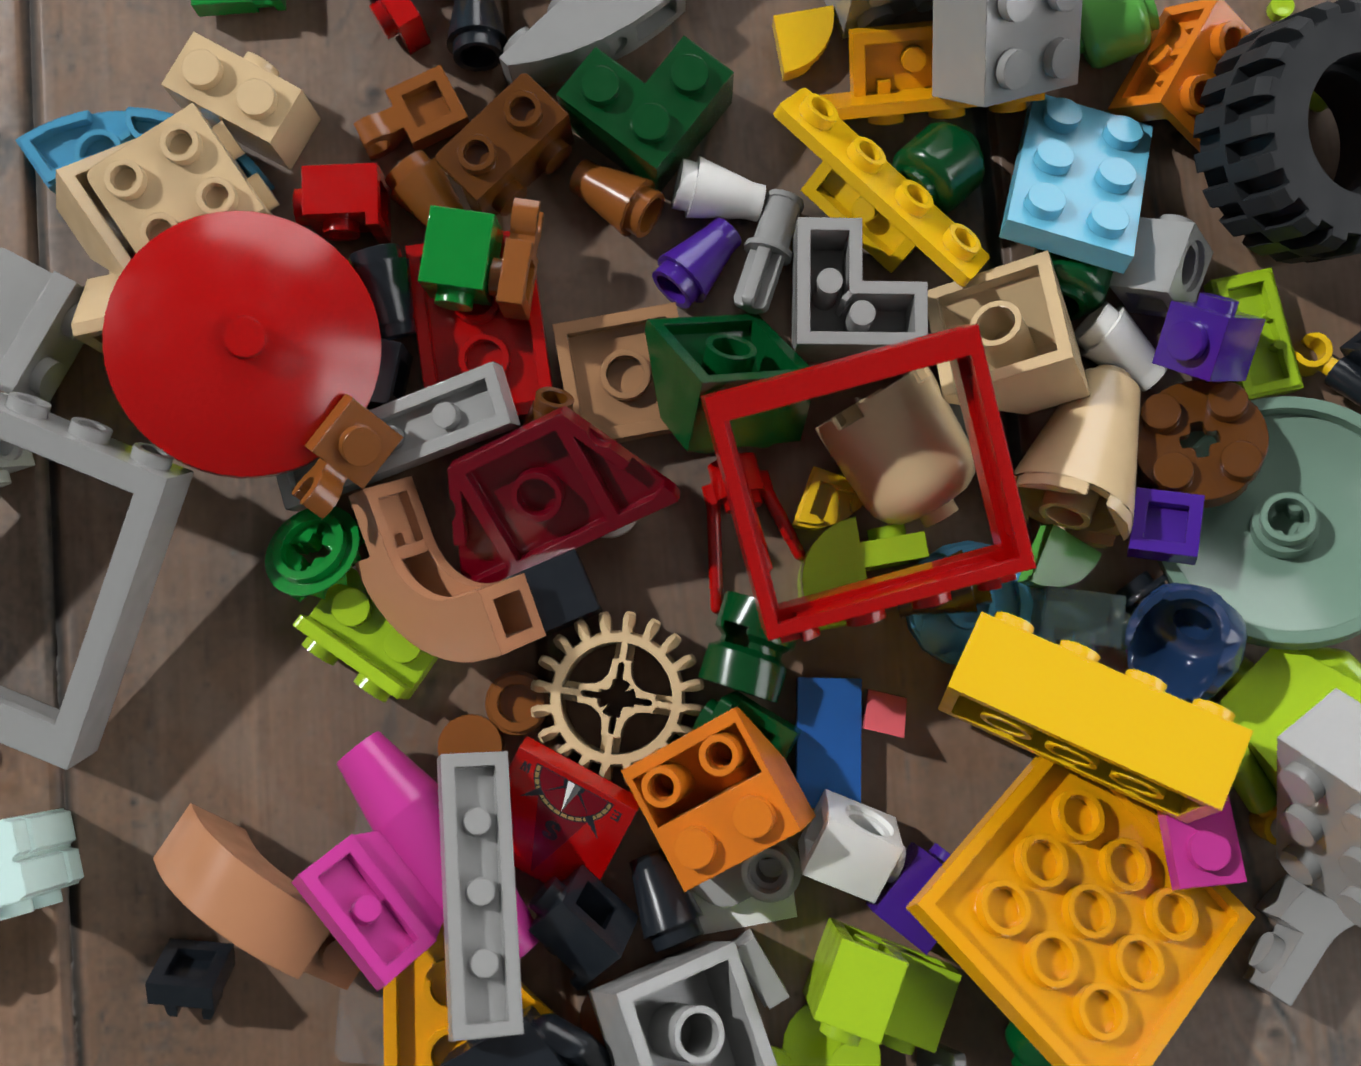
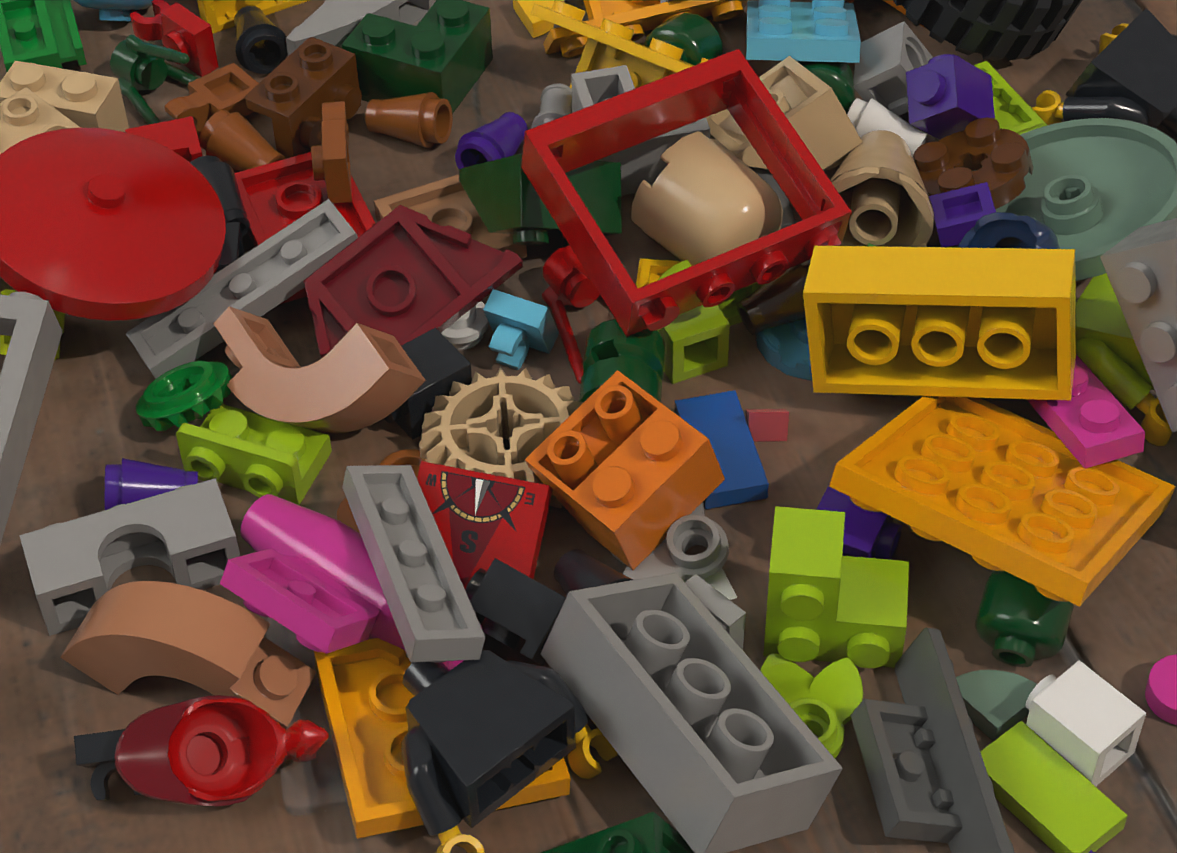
camera: 15 degrees left, 35 degrees down
(180, 751) = (83, 557): none -> light grey arch
(262, 664) = (142, 480): none -> dark purple cone
(275, 1018) = (210, 750): none -> red hair
(346, 44) = (143, 67): none -> dark green plant
(351, 447) = (210, 279): dark orange plate -> none
(459, 257) = (281, 155): green brick -> none
(665, 542) = (517, 327): none -> medium azure tile
(714, 191) = (487, 98): white cone -> none
(851, 847) = (759, 484): white brick -> none

